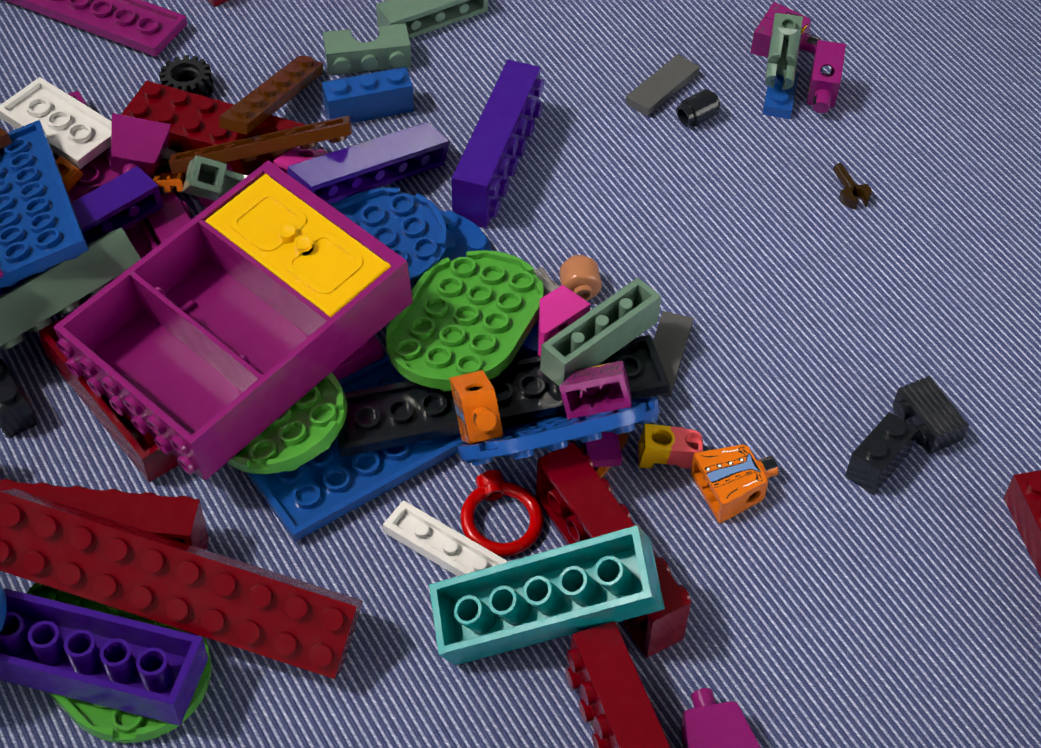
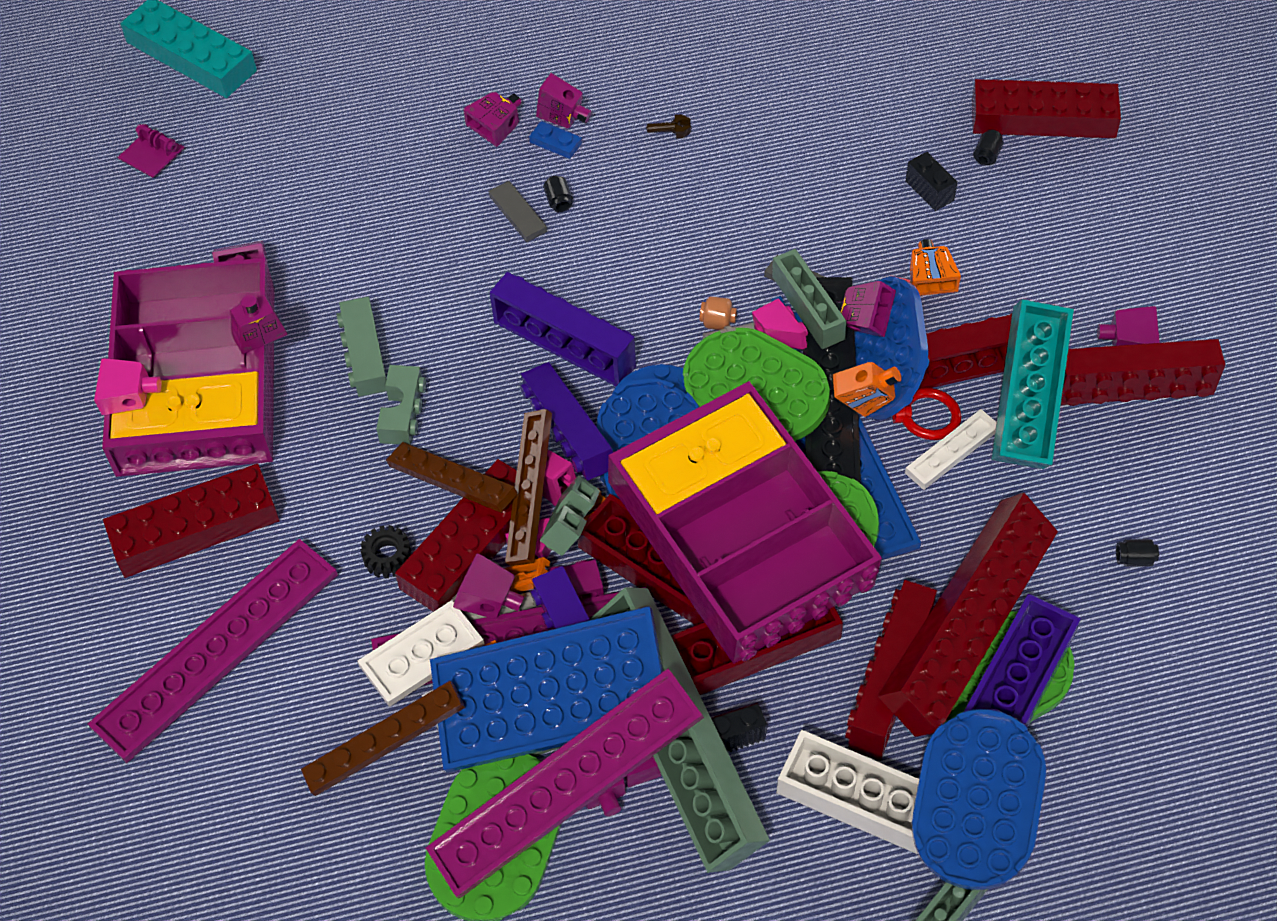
camera: 70 degrees left, 5 degrees up
(369, 95) = (464, 414): blue brick -> none
(783, 49) = (529, 116): sand green plate -> none
(931, 412) = (902, 145): black brick -> none
(975, 511) = (988, 147): none -> black brick

